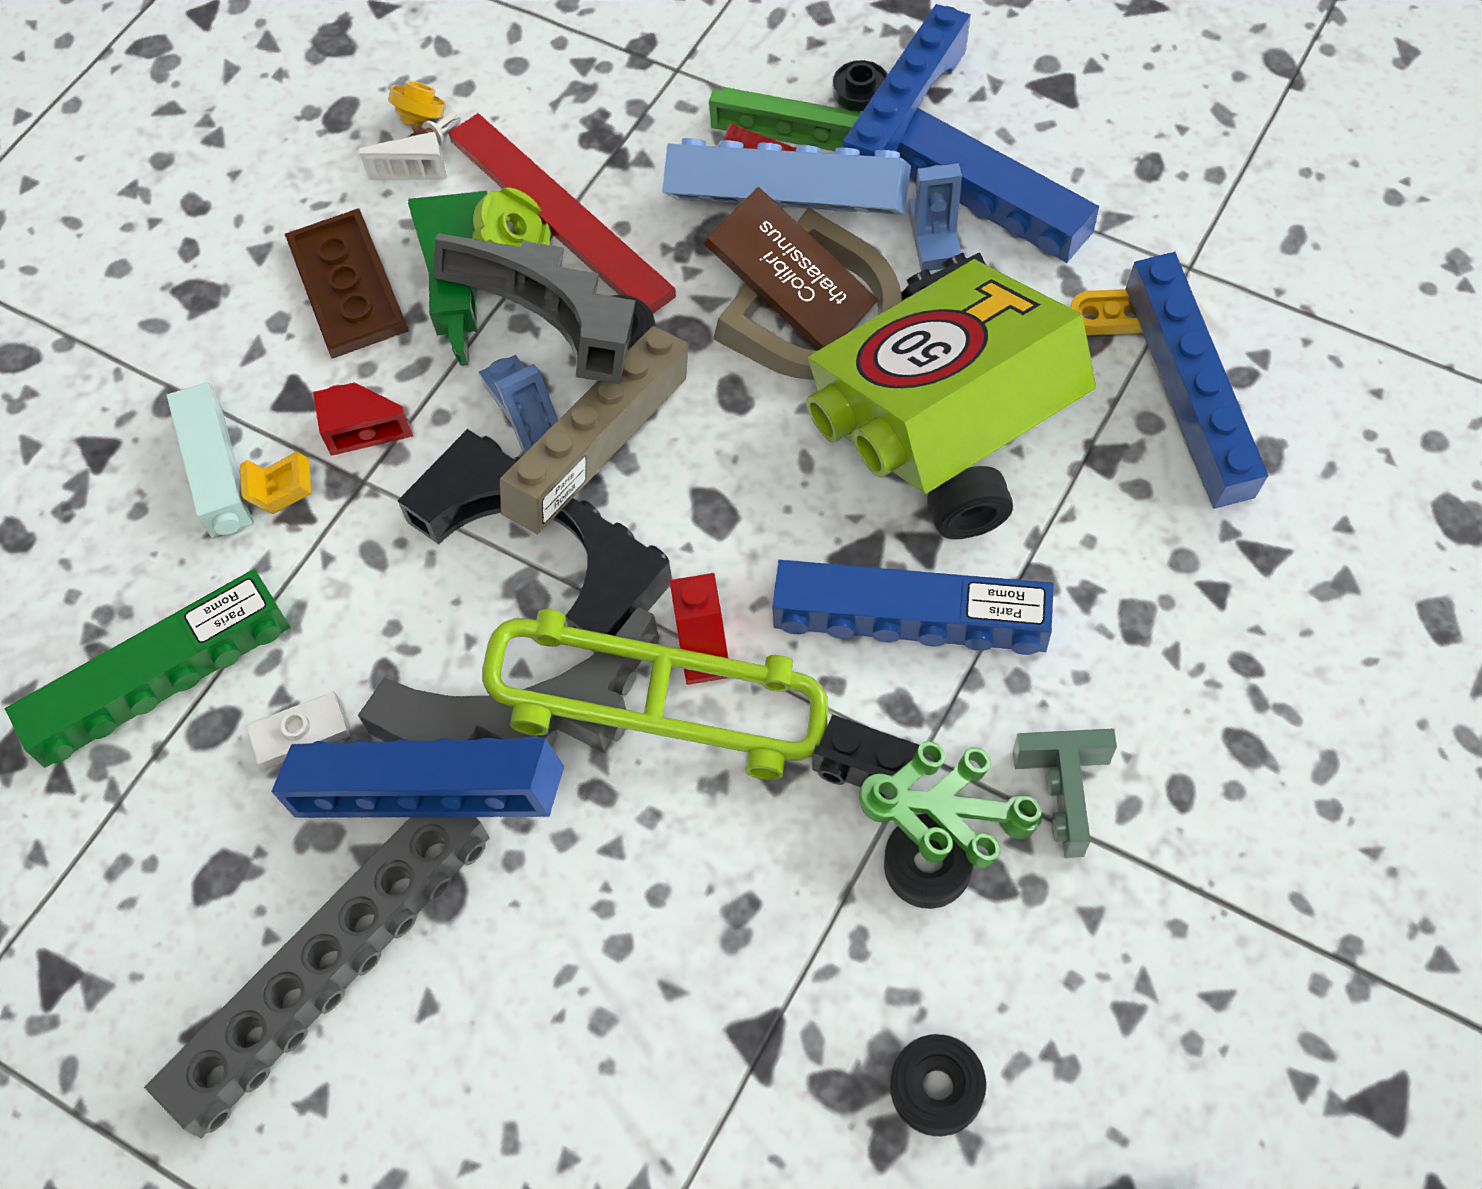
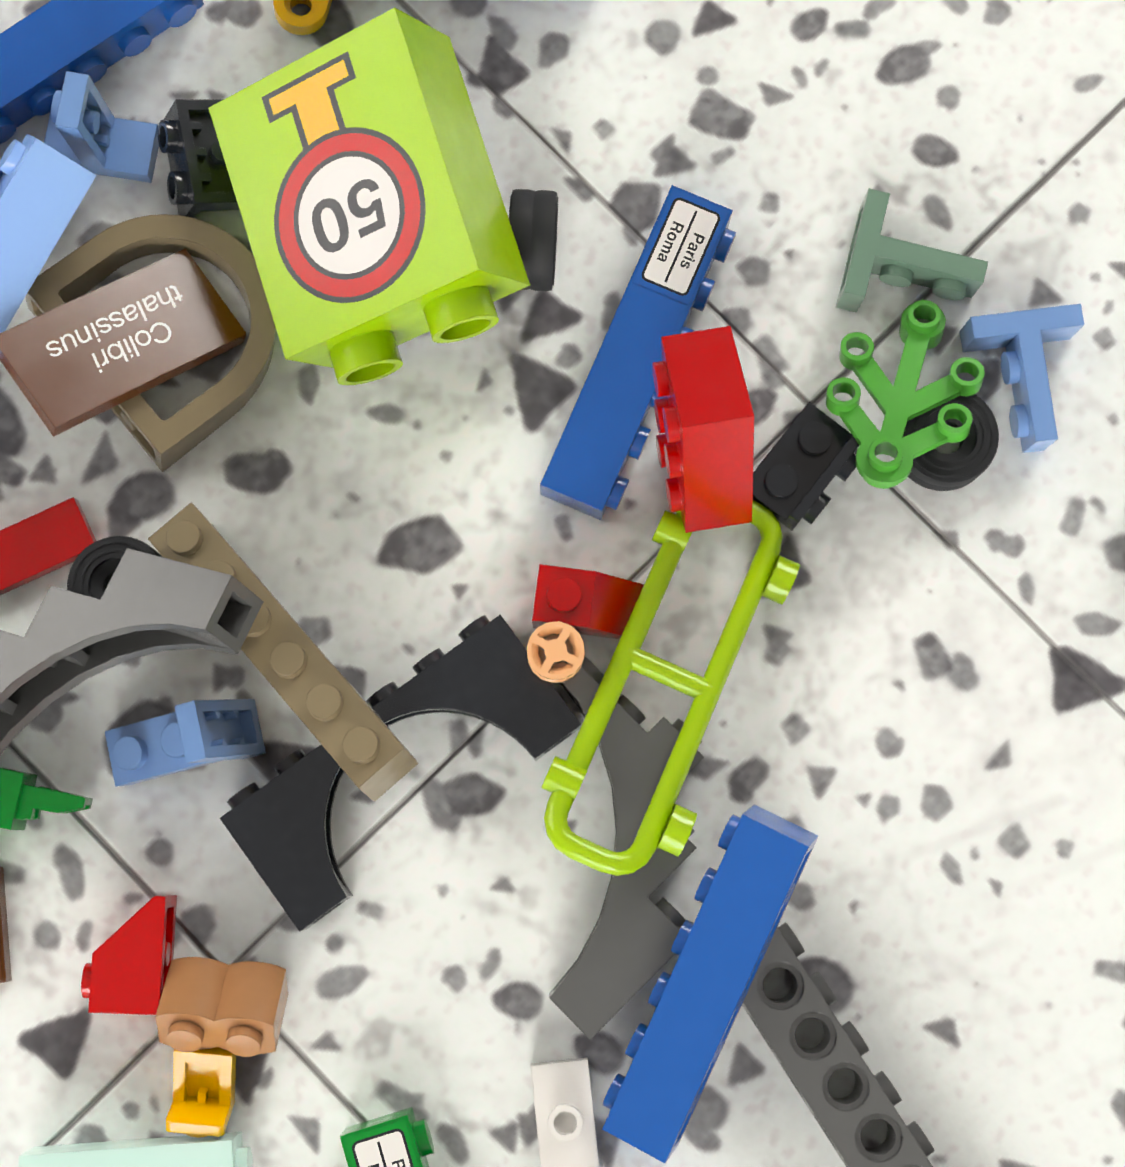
camera: 80 degrees left, 20 degrees up
(334, 473) = (222, 1006): none -> medium nougat brick
(642, 588) = (552, 639): none -> light nougat wheel
(854, 645) = (705, 429): none -> red brick
(1019, 905) = (1025, 363): none -> medium blue bracket

